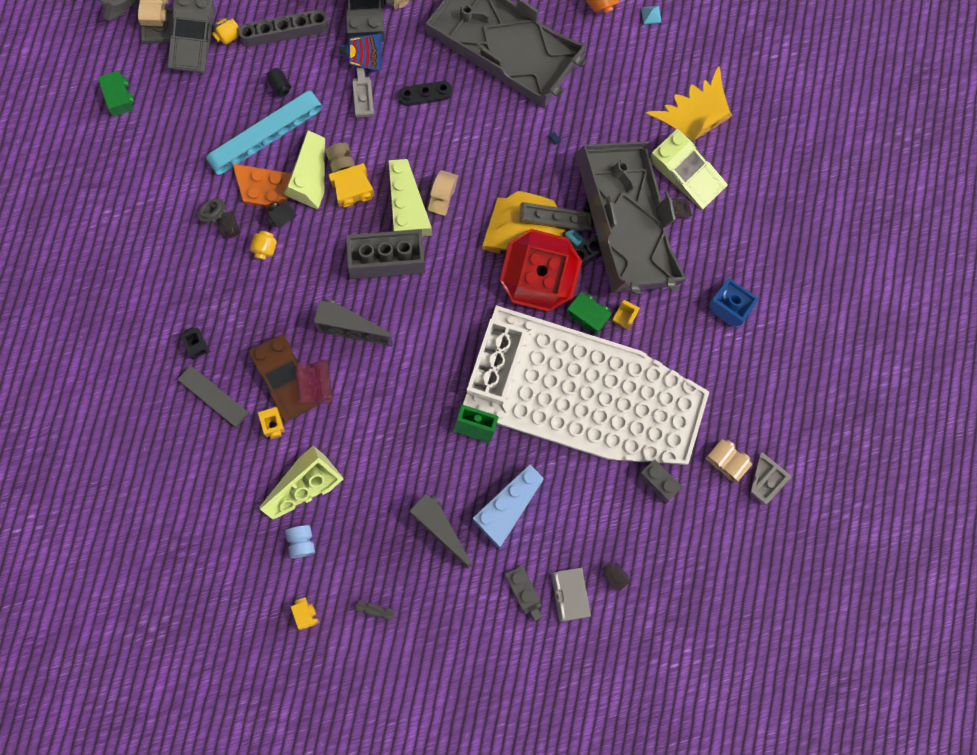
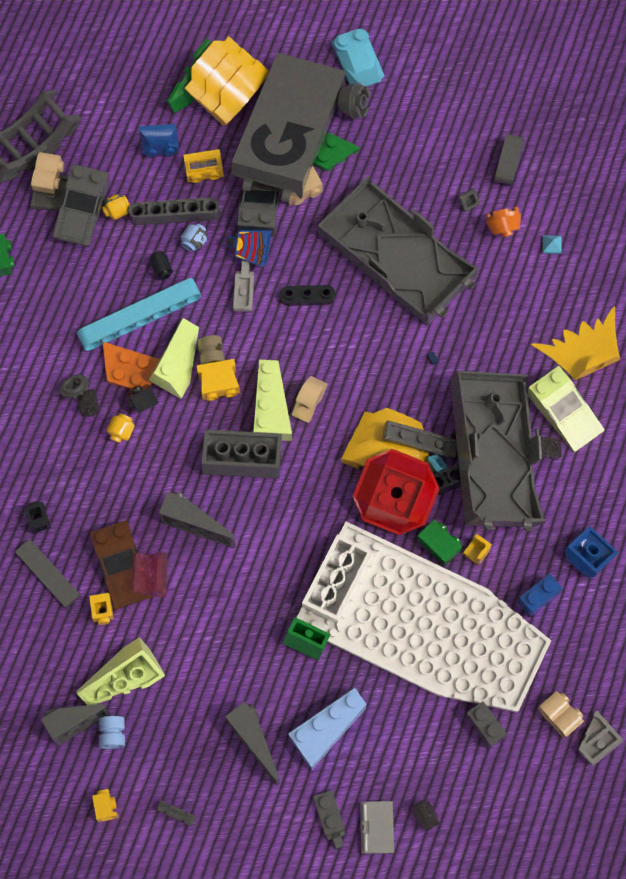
camera: 15 degrees right, 5 degrees down
(258, 537) = (70, 721): none -> dark grey slope
(306, 51) = (194, 237): none -> light blue head
(692, 350) = (540, 595): none -> blue brick

